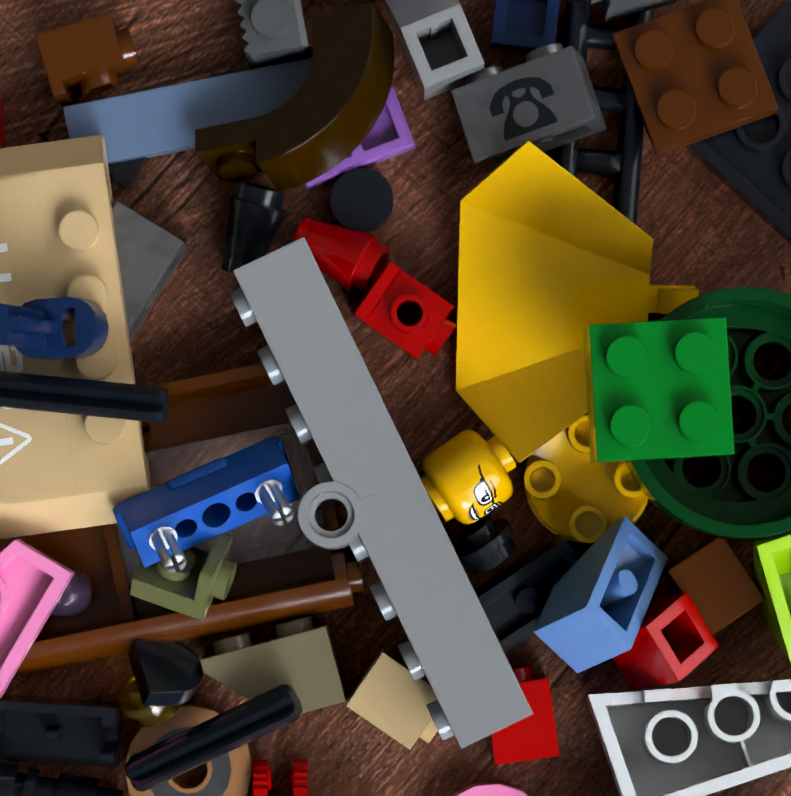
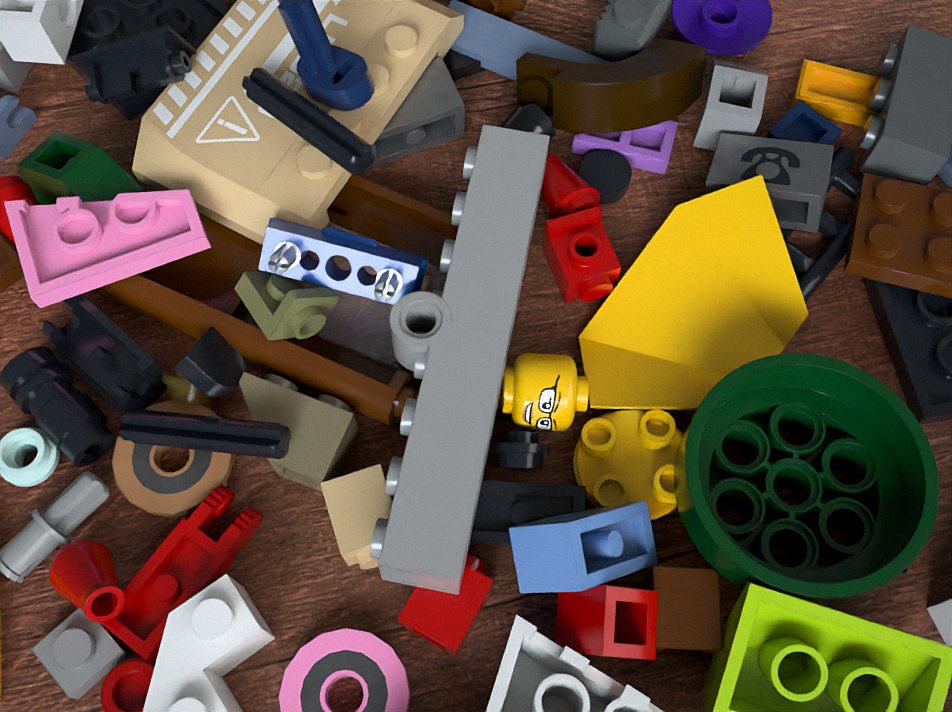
camera: 35 degrees right, 20 degrees down
(75, 597) = (197, 270): clear purple hinge -> none
(658, 390) = (753, 388): green brick -> none

